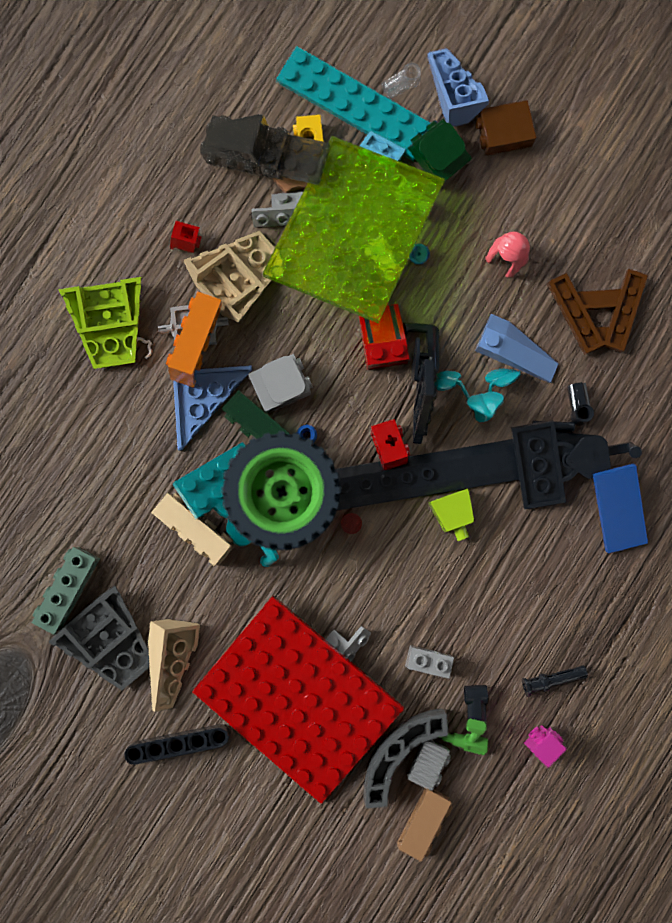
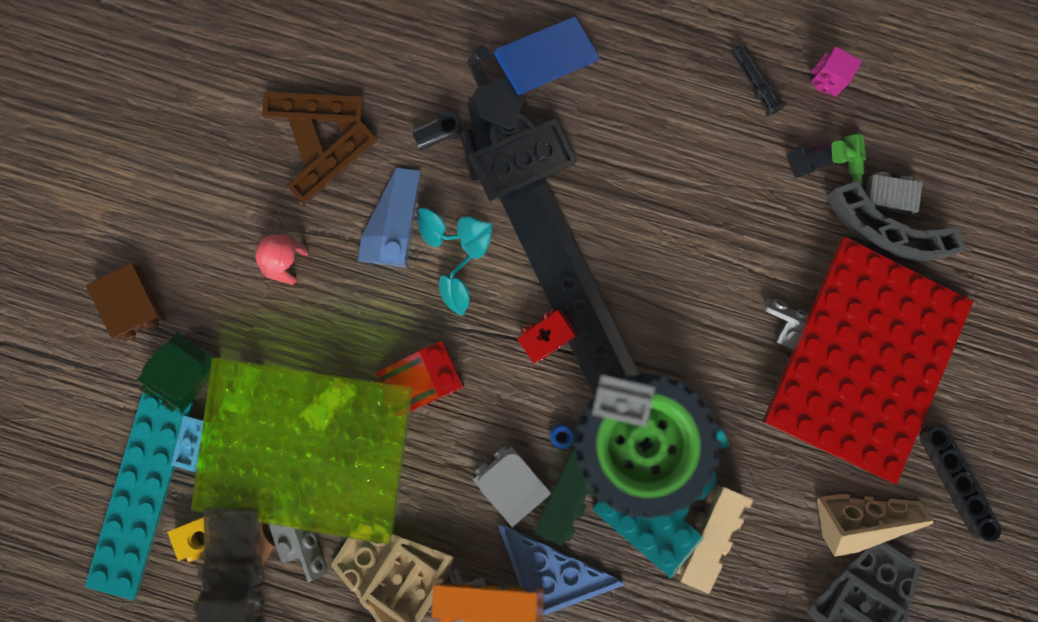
camera: 100 degrees left, 0 degrees up
(321, 479) = (623, 401): none -> light grey plate
(351, 523) = (650, 355): clear red tile -> none
(401, 82) = (100, 444): clear piece -> none
(420, 254) = (308, 362): tile -> none
(424, 824) = (959, 181): medium nougat brick -> none
(425, 376) = (457, 317): black plate -> none
(429, 661) = (781, 223): light grey brick -> none
(454, 513) = (604, 240): lime torso -> none
(457, 91) = (95, 371): medium blue wedge -> none

